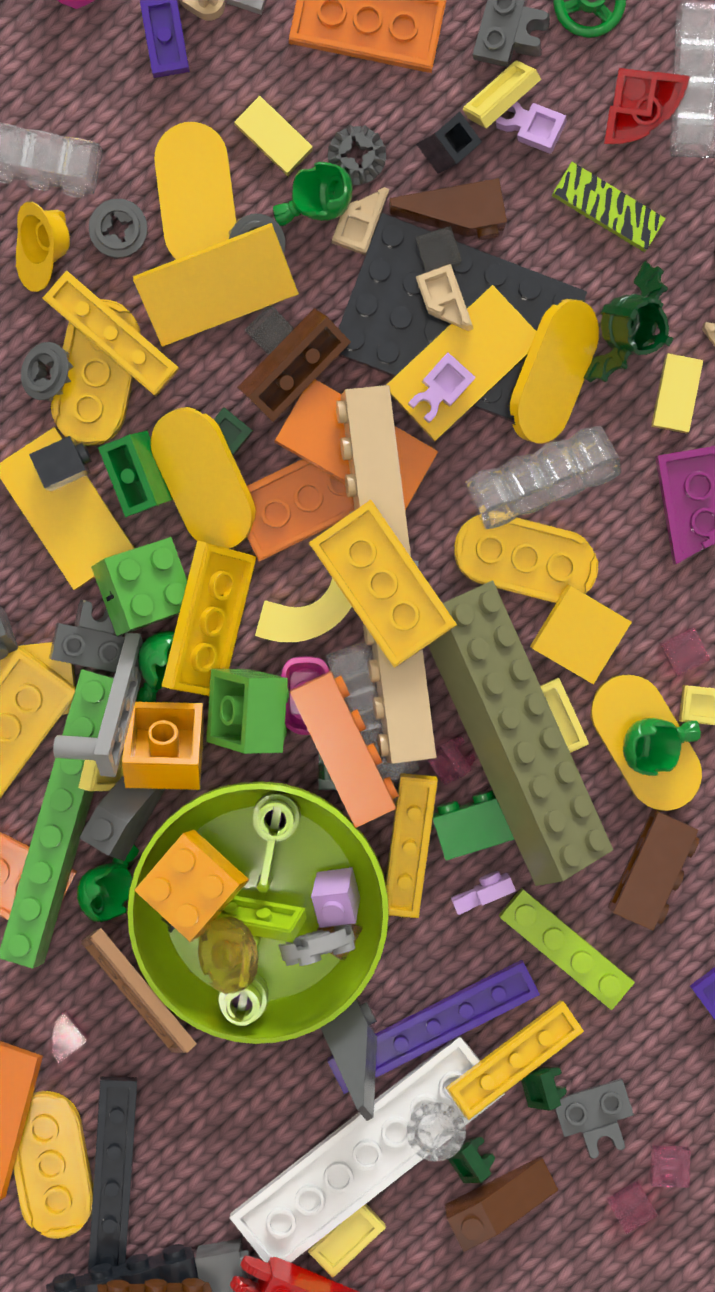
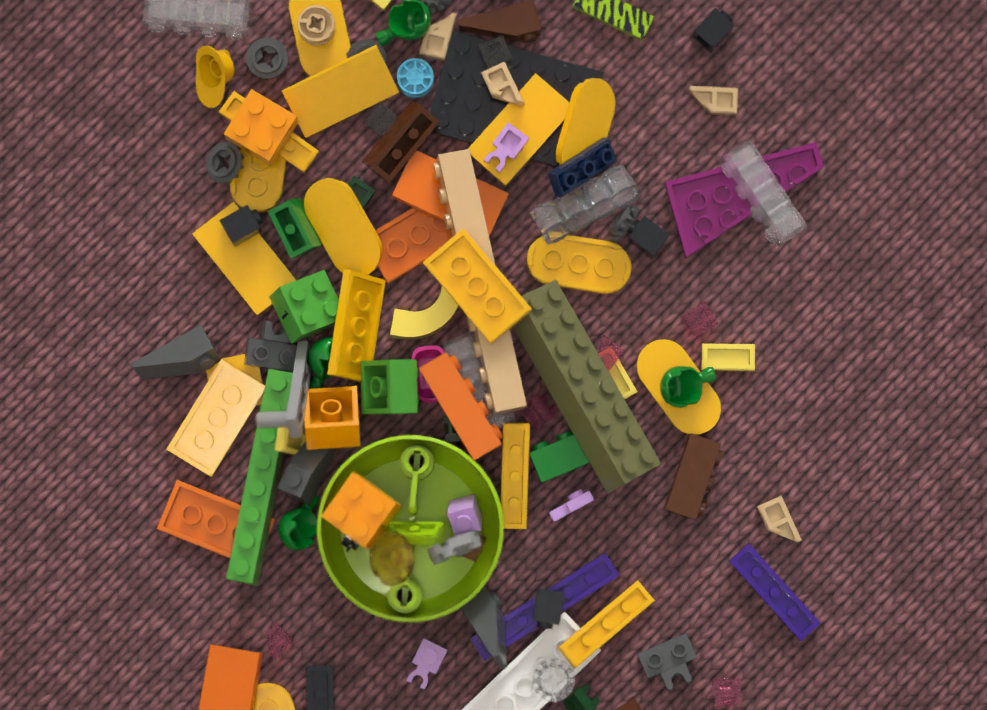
camera: 10 degrees left, 5 degrees down
(98, 327) = (261, 127): none -> light orange brick
(138, 992) = (328, 597): medium nougat tile -> none
(190, 187) = (316, 25): none -> tan wheel
(267, 1082) = (428, 659): none -> lavender plate
(322, 276) = (415, 78): none -> medium azure wheel
(438, 1034) = (548, 608): none -> black brick
(541, 1088) = (627, 644): dark green tile -> none
(544, 425) = (582, 167): none -> dark blue tile
(556, 687) = (609, 352): none -> clear pink tile
(566, 948) = (636, 542): lime plate -> none
(580, 634) = (623, 313): yellow tile -> none
(594, 507) = (623, 222): none -> dark grey gear
(624, 530) = (647, 236): none -> black brick
(631, 324) = (637, 91): dark green helmet -> none
(677, 393) = (675, 137): light yellow tile -> none

